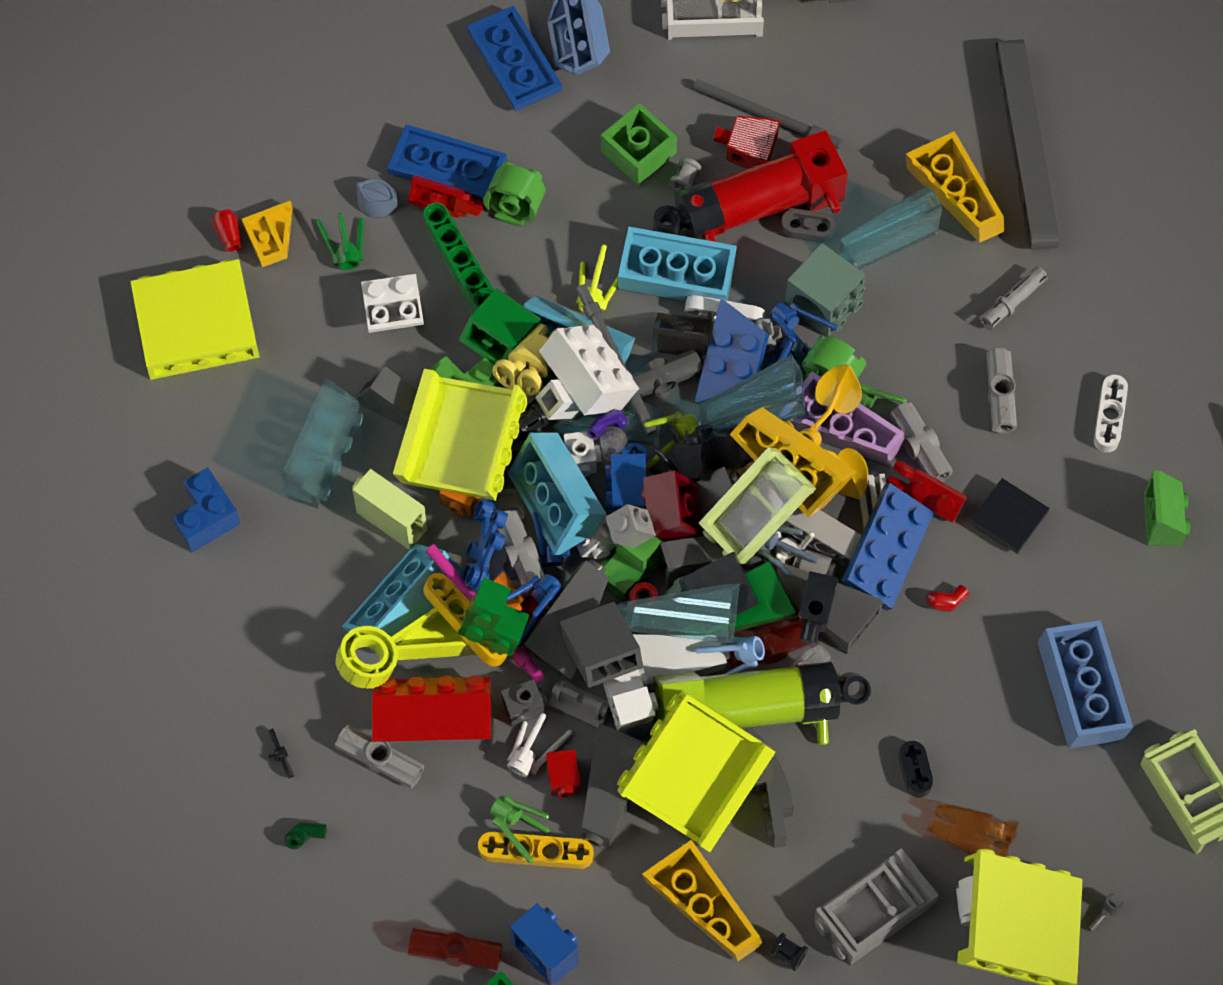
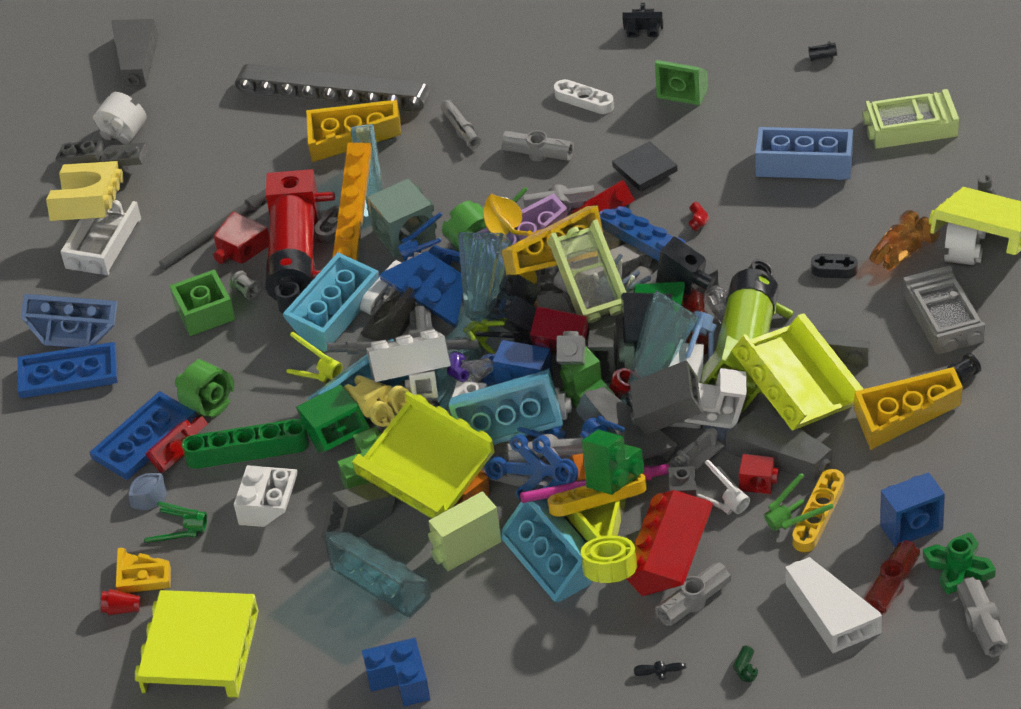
camera: 65 degrees left, 20 degrees down
(398, 898) = (831, 606): none -> white slope
(829, 231) = (352, 200): none -> light orange plate

